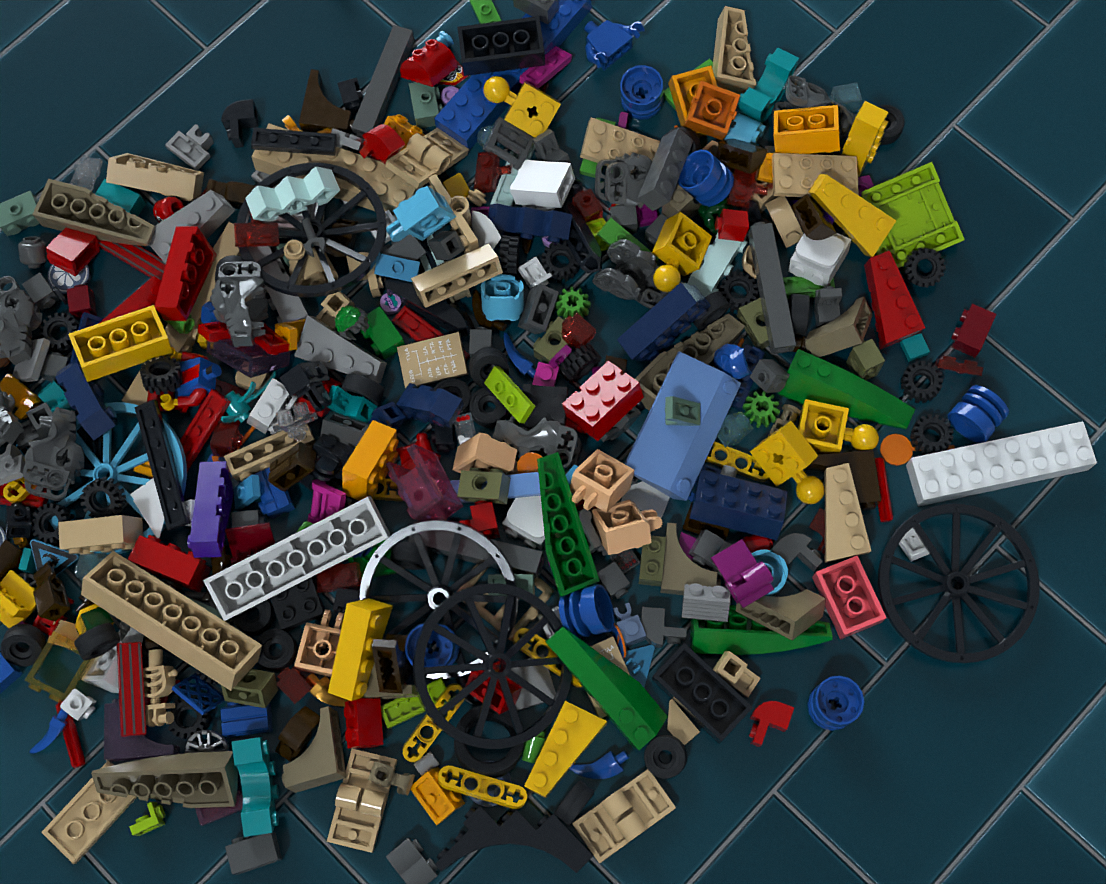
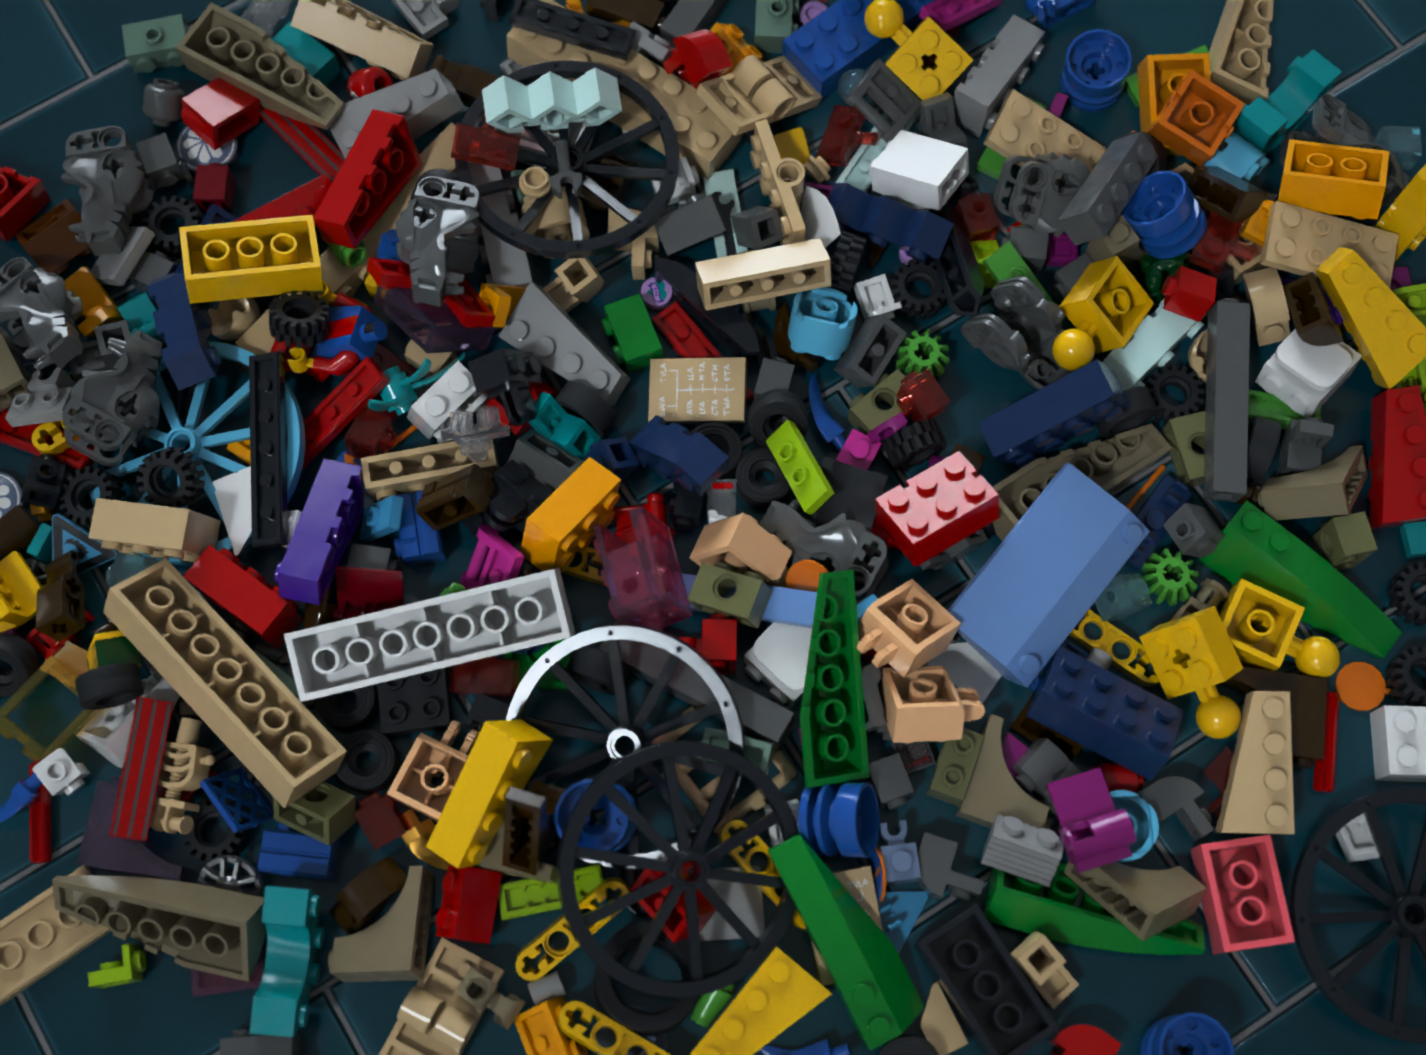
camera: 10 degrees right, 0 degrees up
(117, 384) = (234, 318): none -> tan hair
(350, 321) = (592, 304): piece -> none
(396, 267) = (677, 242): dark azure plate -> none
(420, 215) = (730, 173): medium azure brick -> none
(579, 109) = (996, 75): none -> light grey wedge
(681, 412) = (1052, 554): sand green slope -> none
(732, 361) = (1143, 495): blue piece -> none

